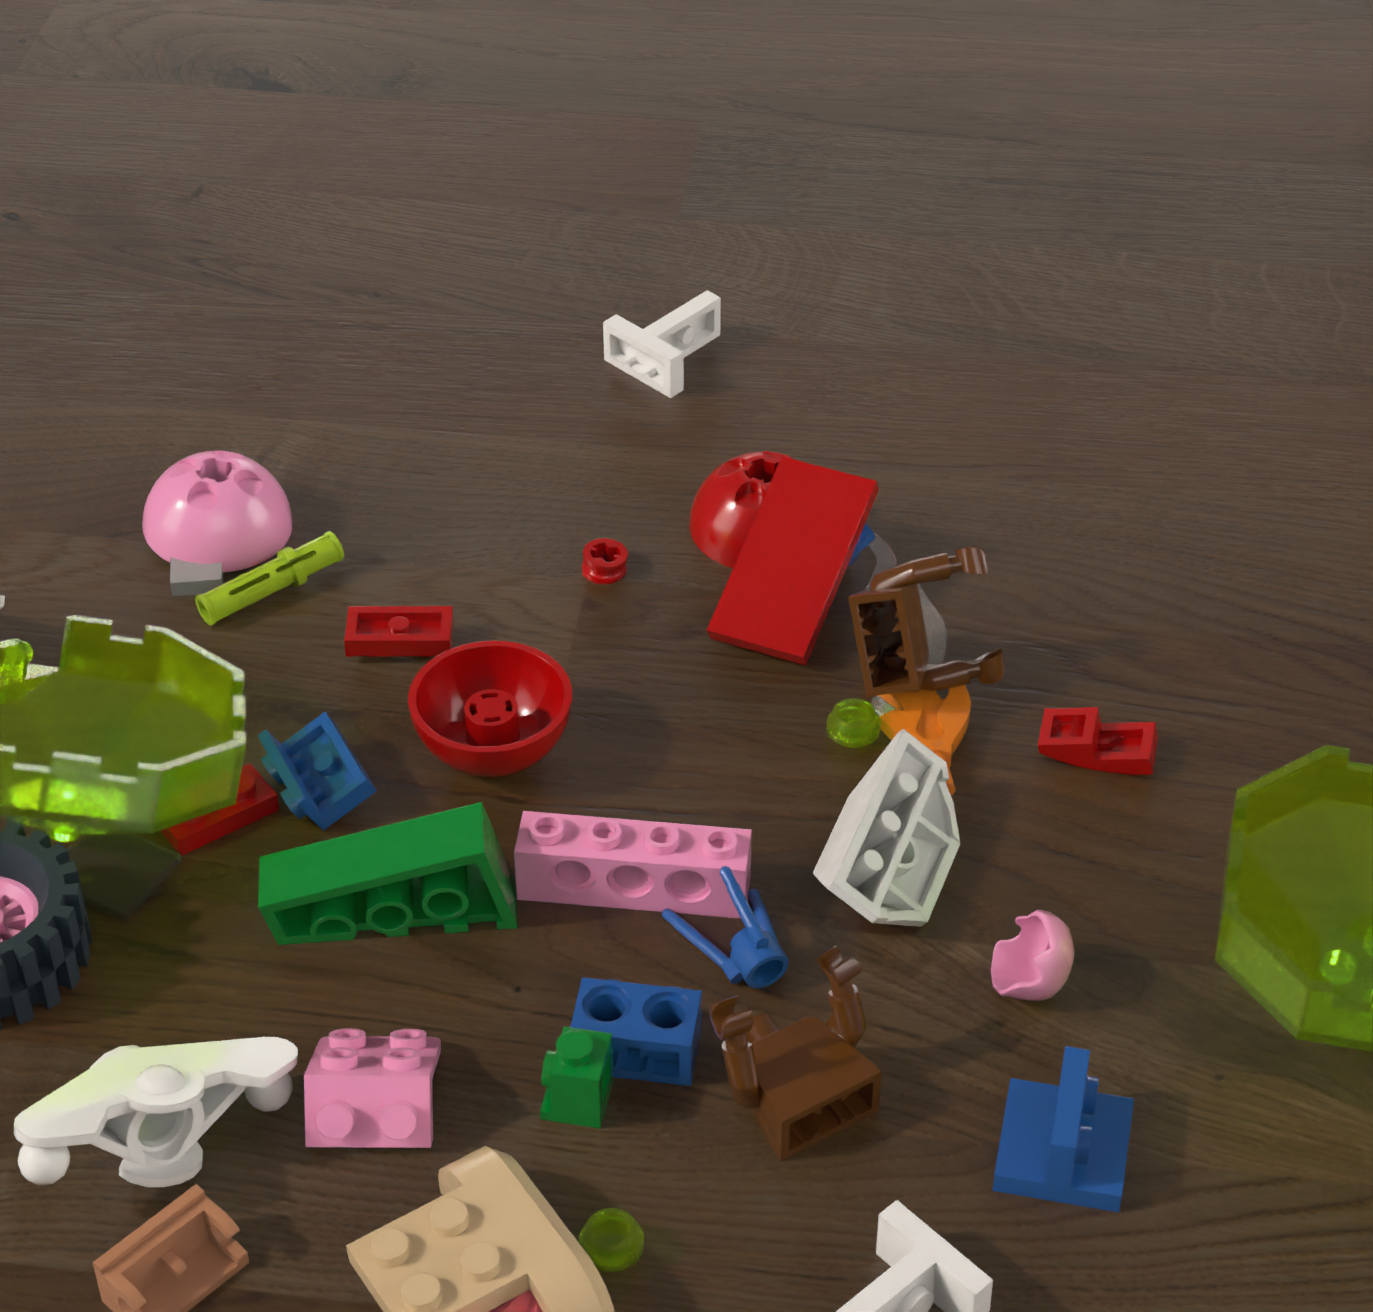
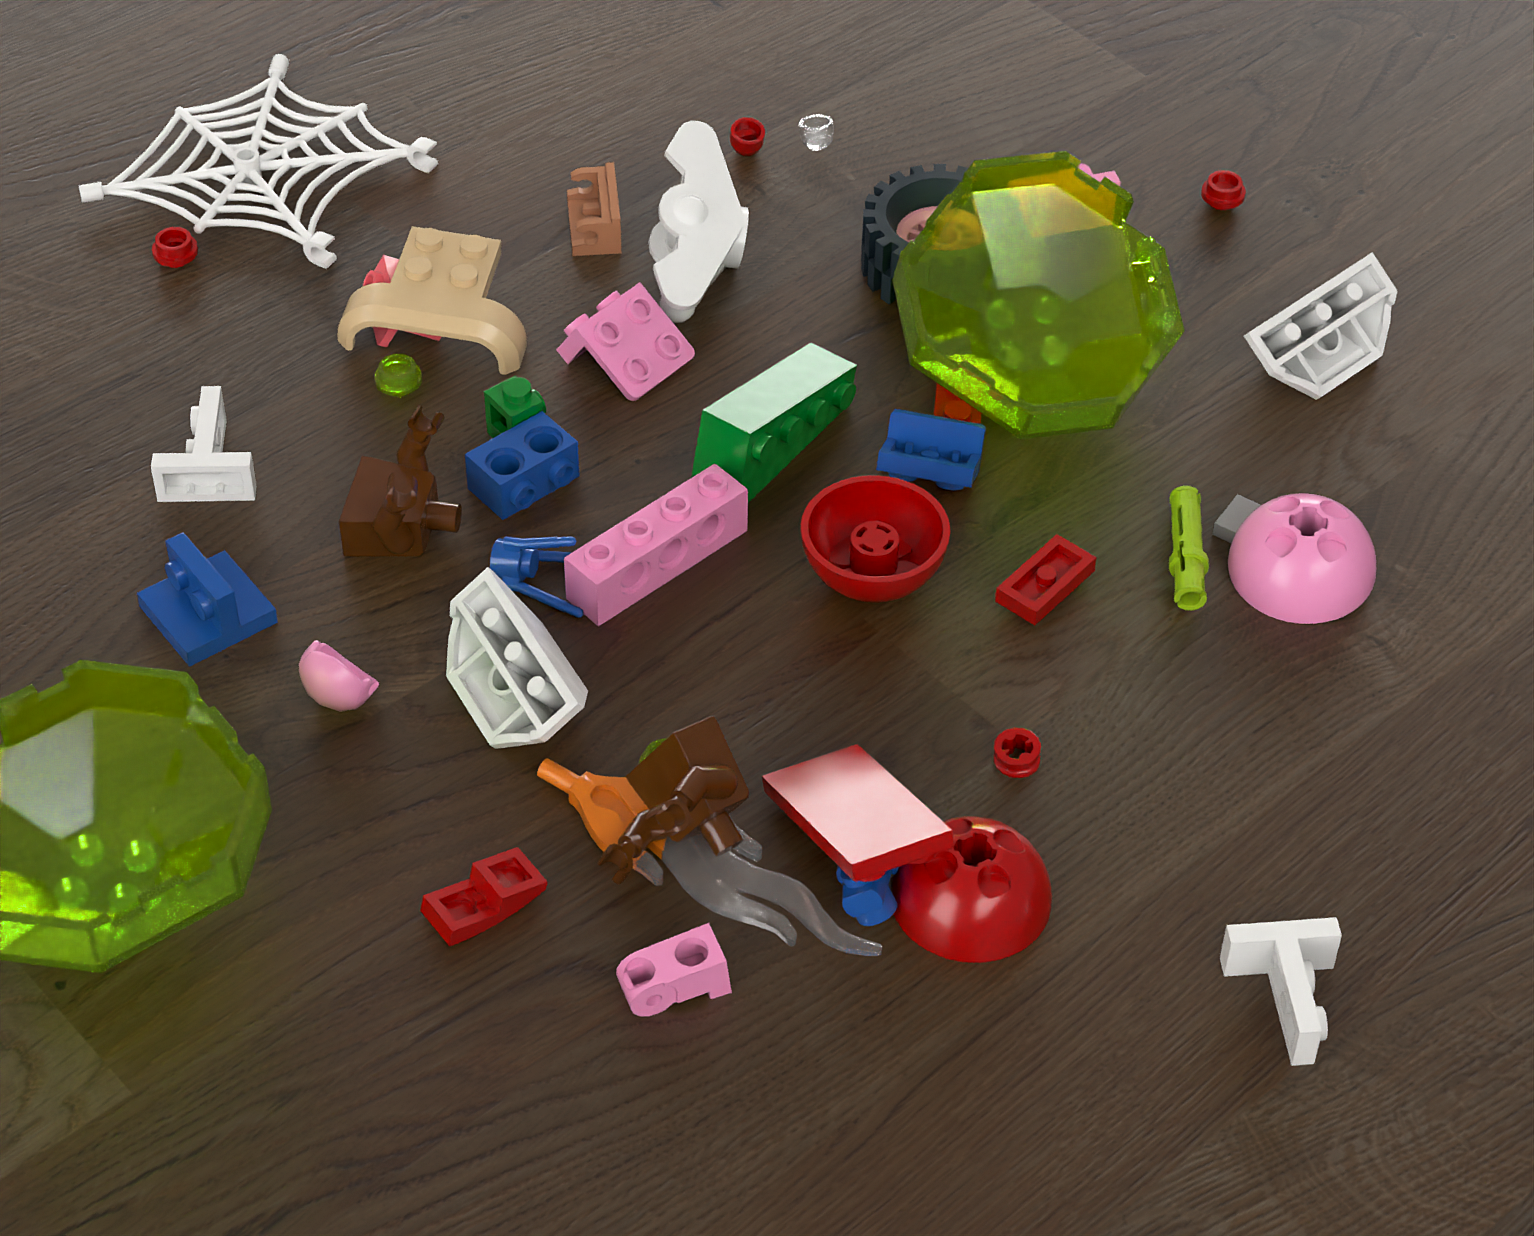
camera: 130 degrees right, 5 degrees up
(1030, 593) = (674, 971): none -> bright pink leg

